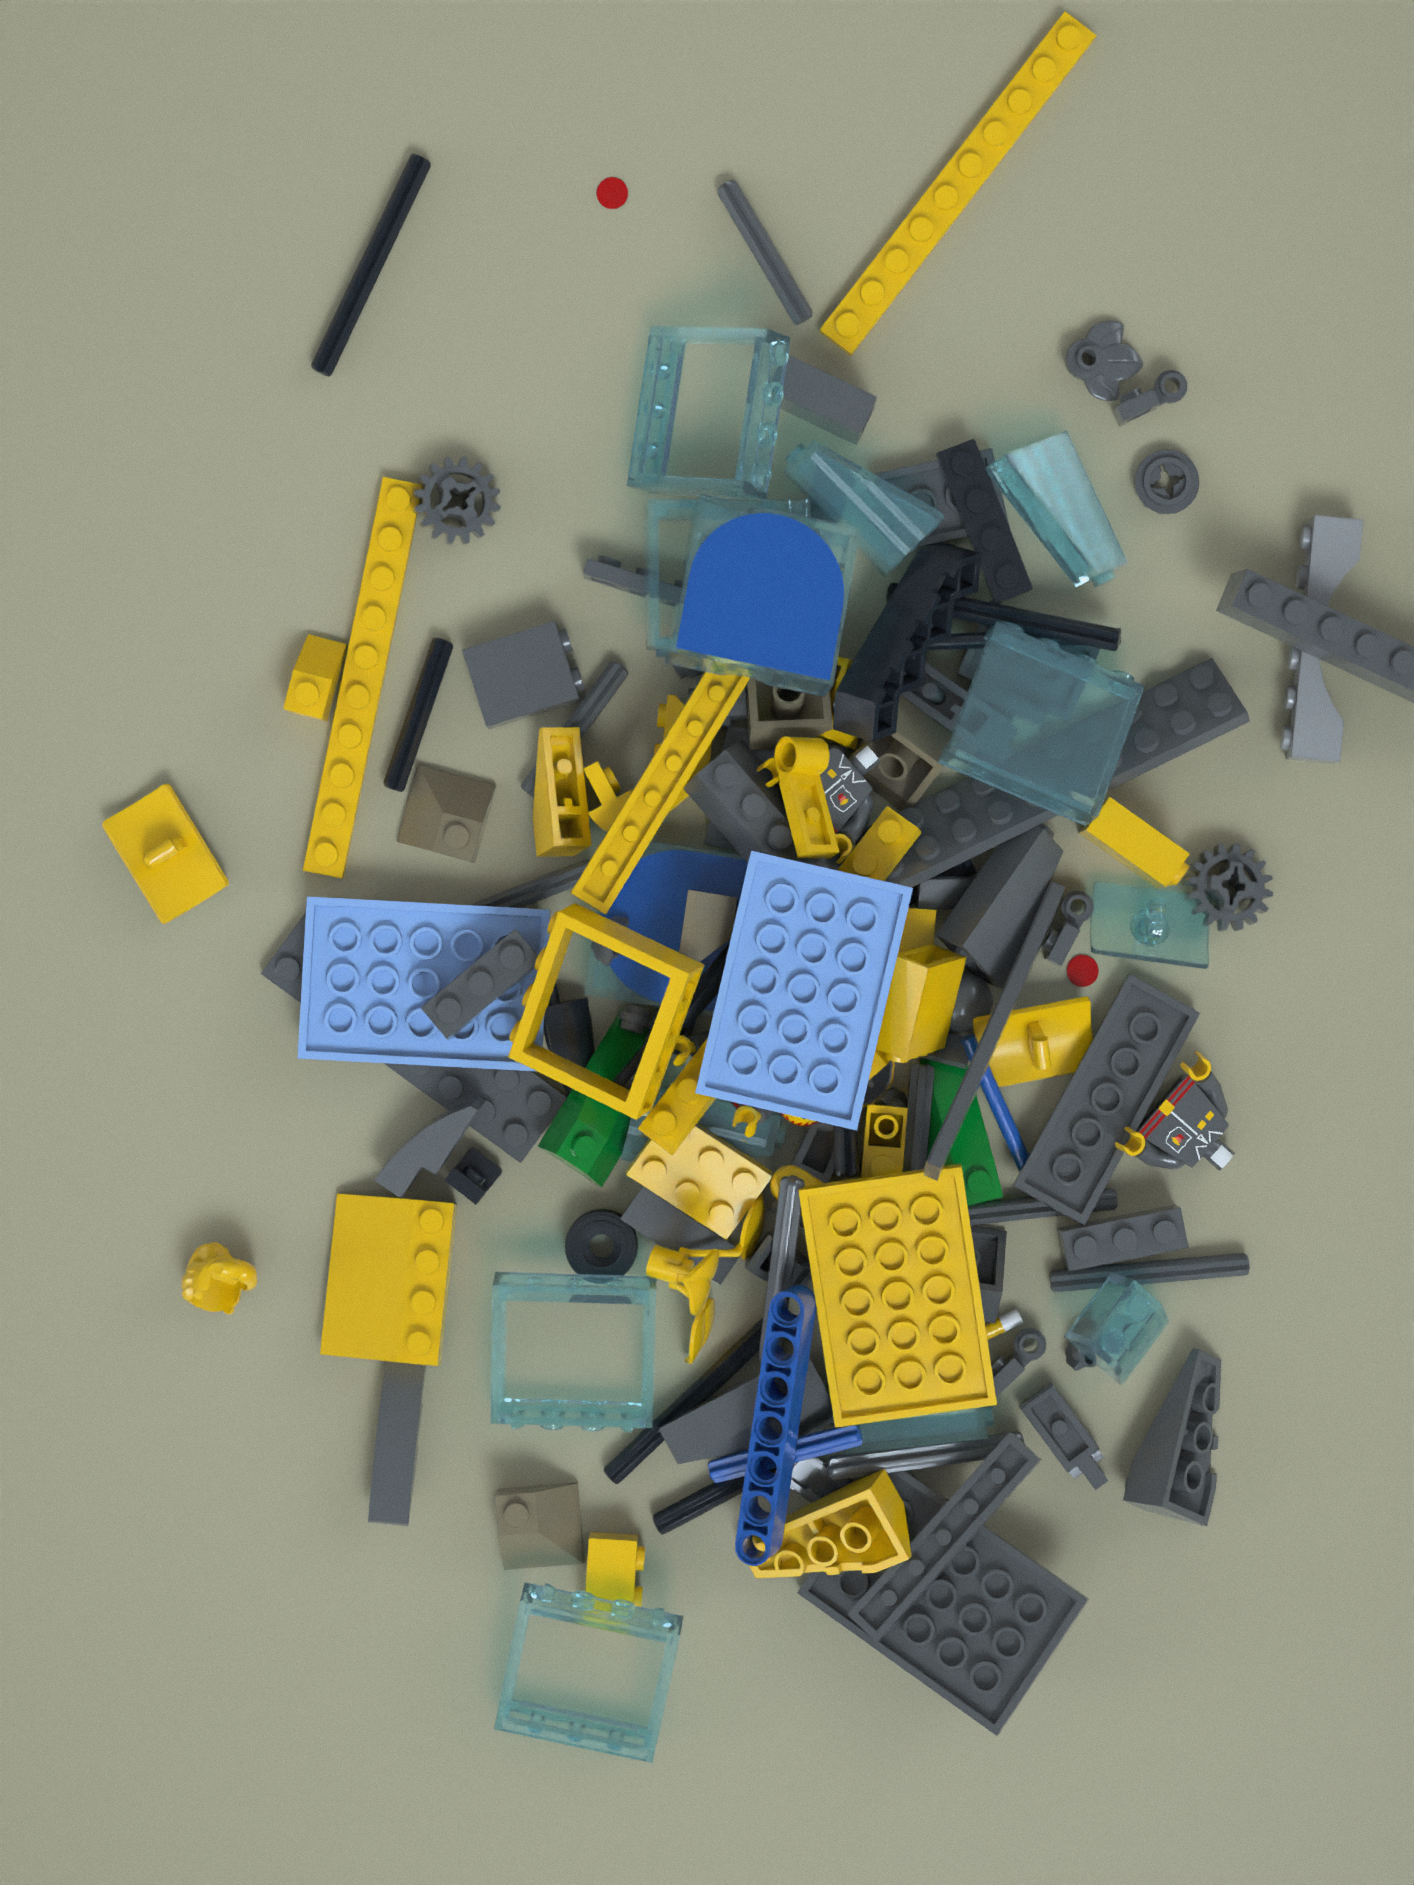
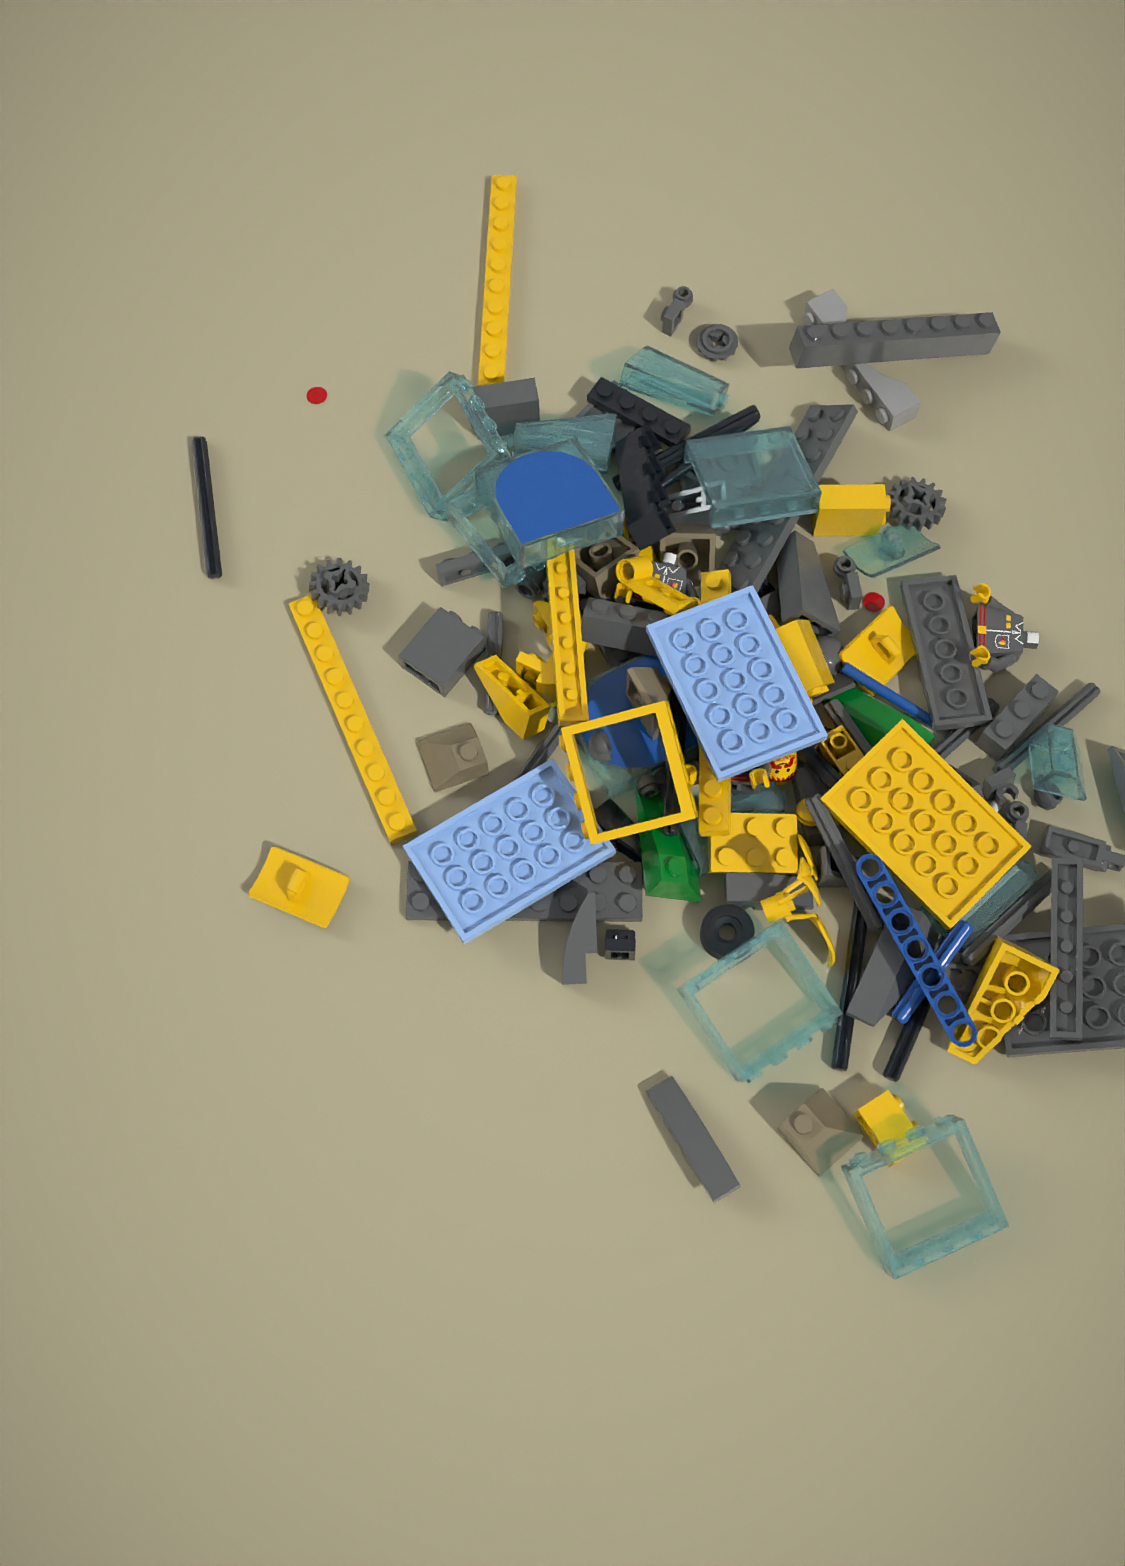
camera: 30 degrees left, 20 degrees down
(216, 1279) = (506, 1117): yellow hair -> none
(315, 678) = (324, 734): yellow slope -> none
(388, 1279) = (615, 1041): yellow slope -> none
(418, 714) = (397, 714): black axle -> none
(481, 984) = (543, 817): dark grey arch -> none
(765, 252) = (408, 365): dark grey axle -> none
(993, 1031) = (859, 649): dark grey tile -> none
(1036, 1299) = (999, 784): none -> dark grey tile
(1109, 360) = (637, 310): dark grey plate -> none

